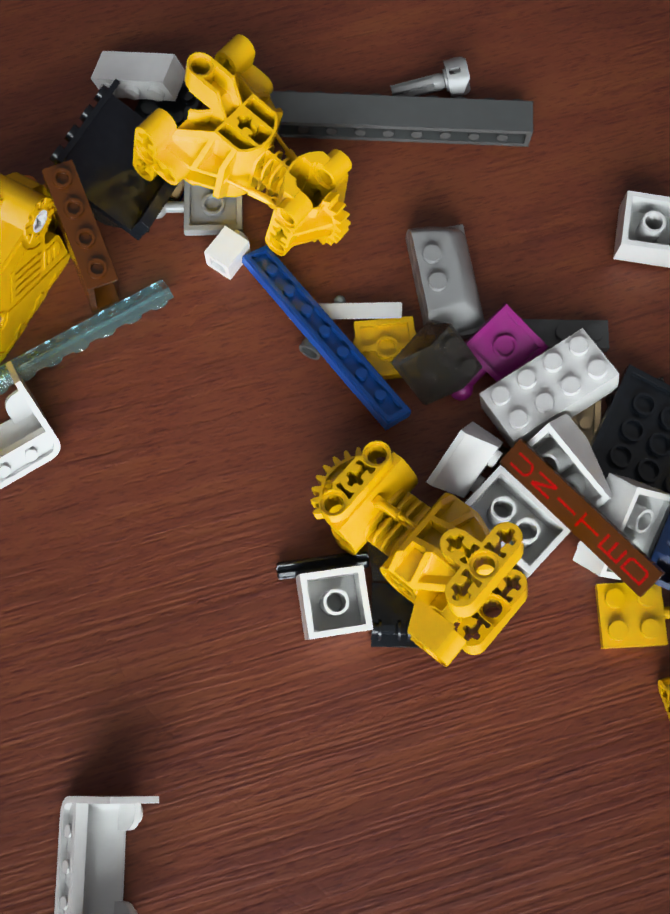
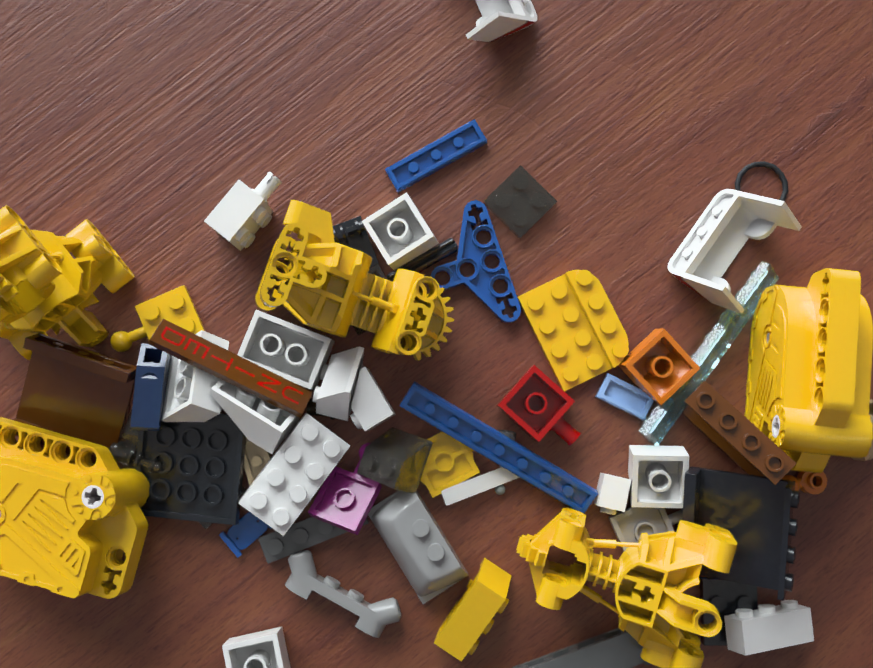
camera: 160 degrees right, 10 degrees up
(121, 350) = (659, 366): none -> orange slope
(169, 340) = (624, 396): none -> light blue tile
(174, 248) = (657, 475): none -> white slope
(184, 589) = (520, 202): none -> clear smoke plate
(187, 429) = (575, 327): none -> yellow plate
(255, 682) = (436, 156): none -> blue tile
(259, 550) = (474, 253): none -> blue beam
(265, 359) = (539, 407): none -> red brick
(411, 196) = (474, 611): none -> yellow wedge
(439, 424) = (369, 402): none -> white slope
(505, 699) = (243, 211): none -> white brick
(521, 232) = (371, 616): none -> light grey plate
(621, 357) = (246, 531): none -> blue piece

